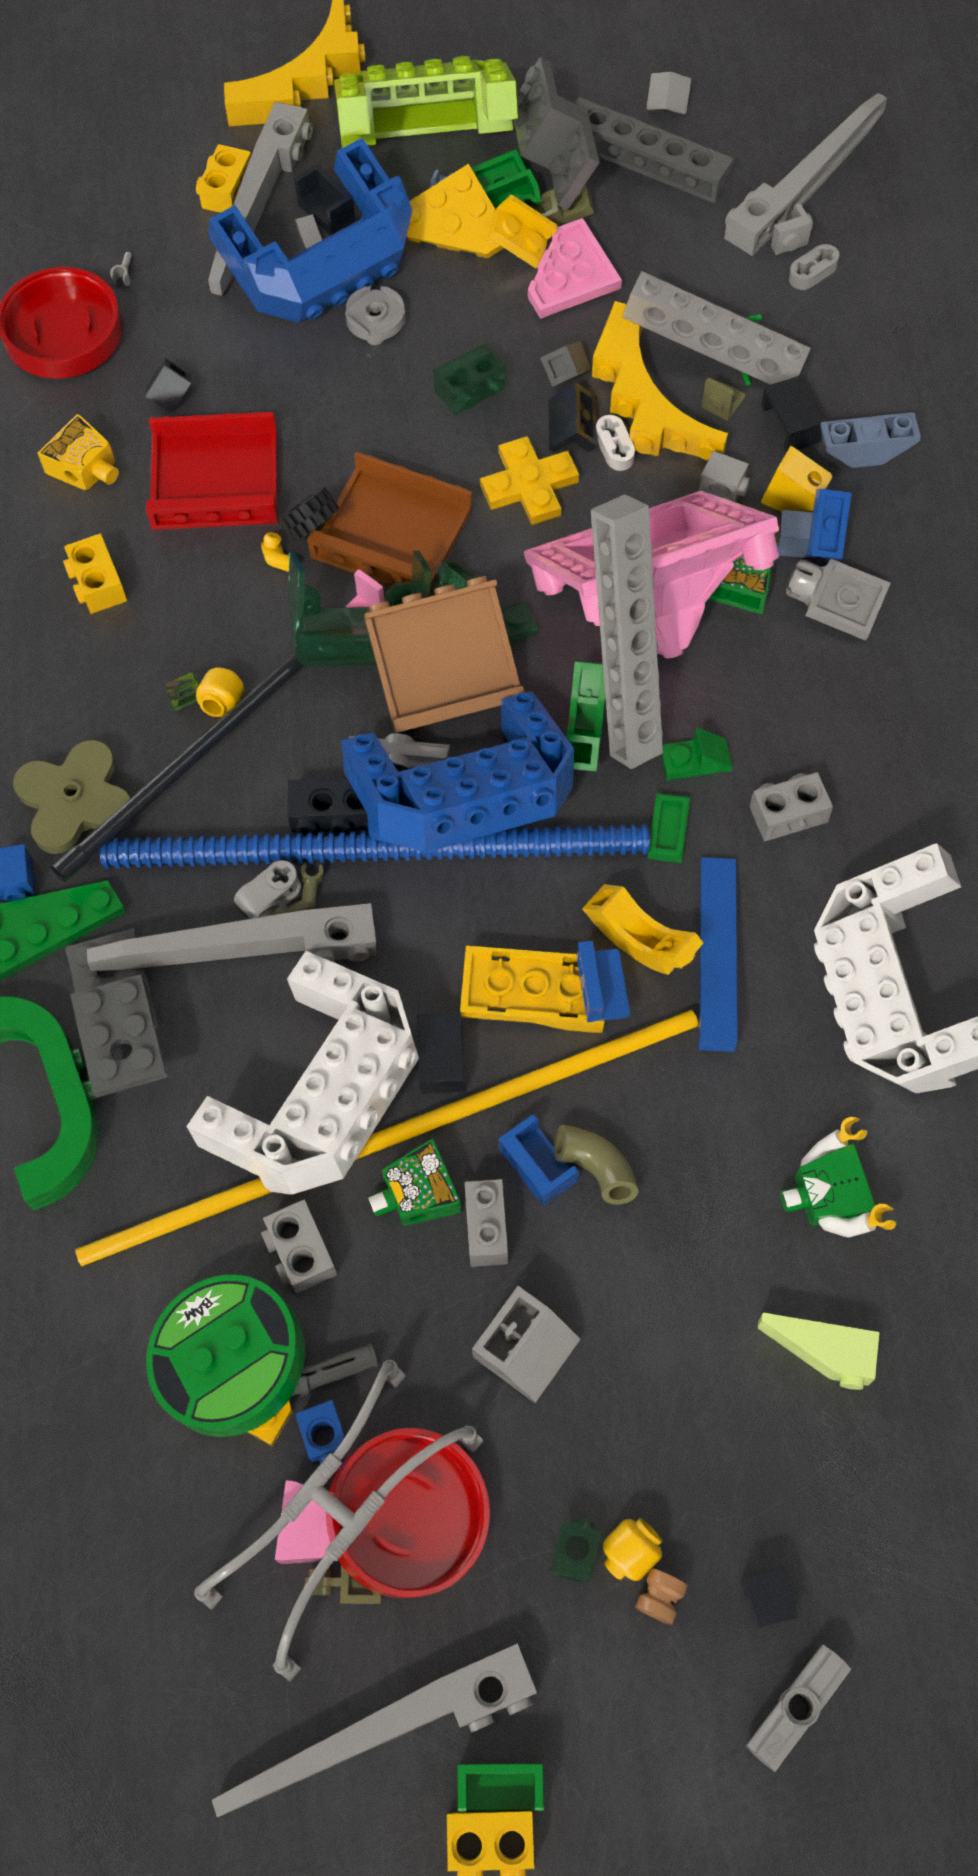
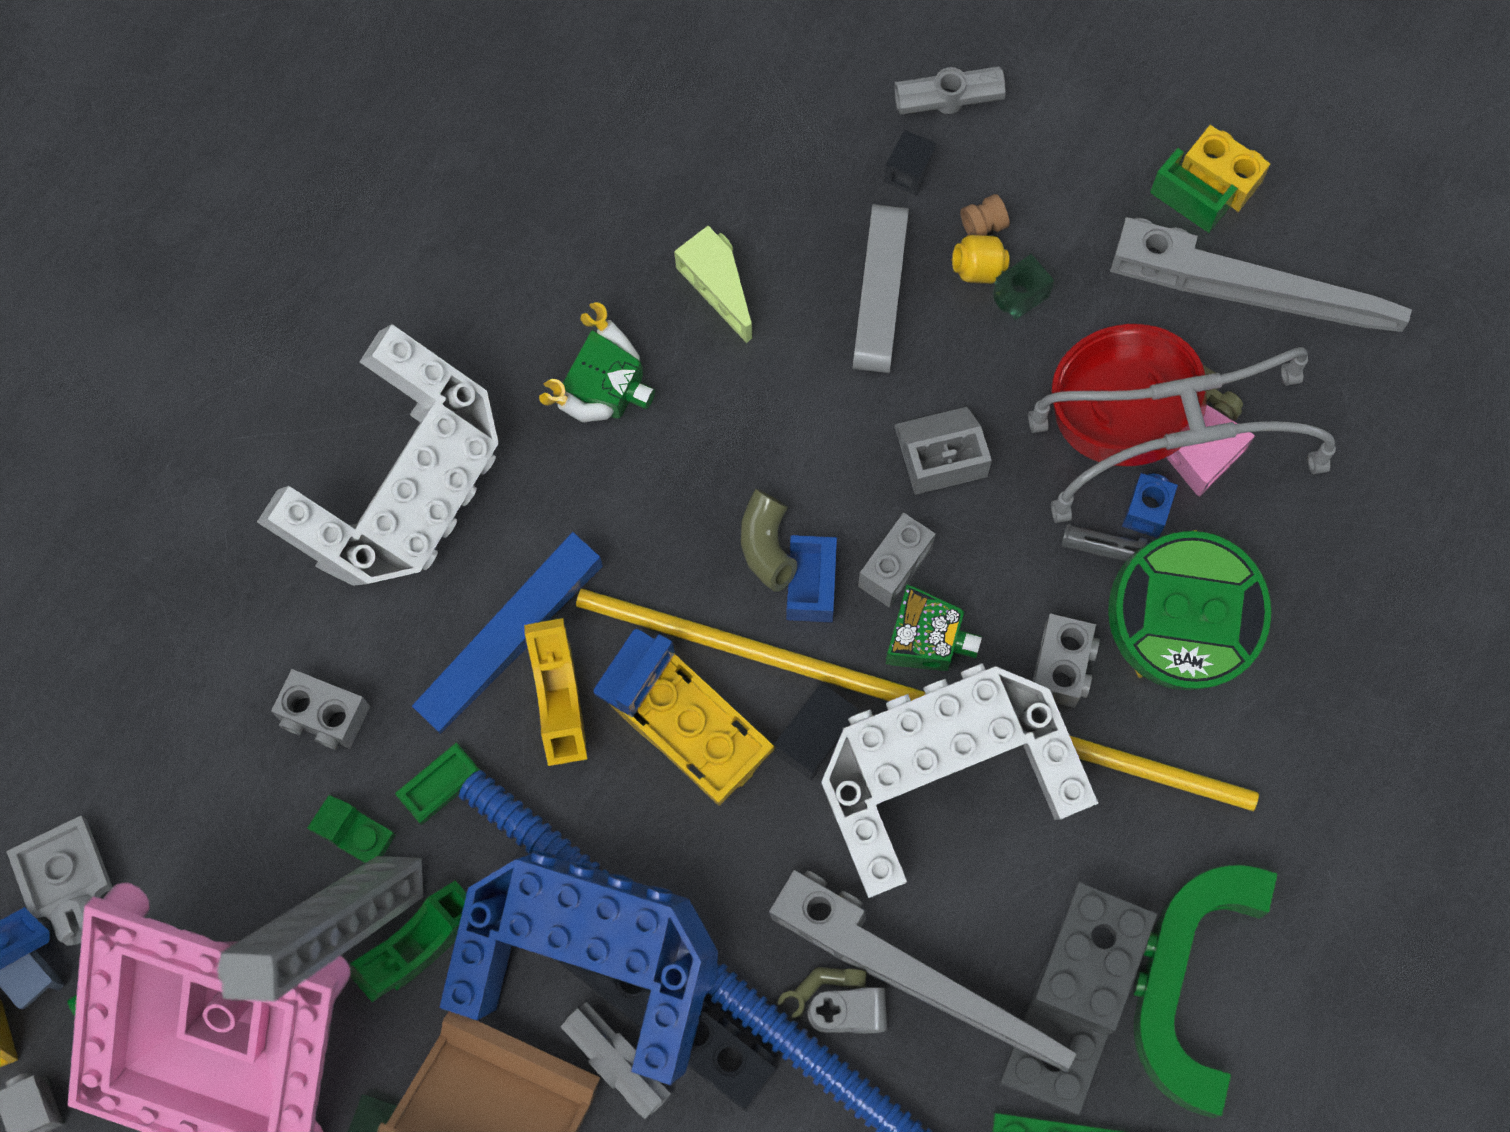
camera: 140 degrees left, 5 degrees up
(693, 1454) = (880, 289): none -> light grey beam

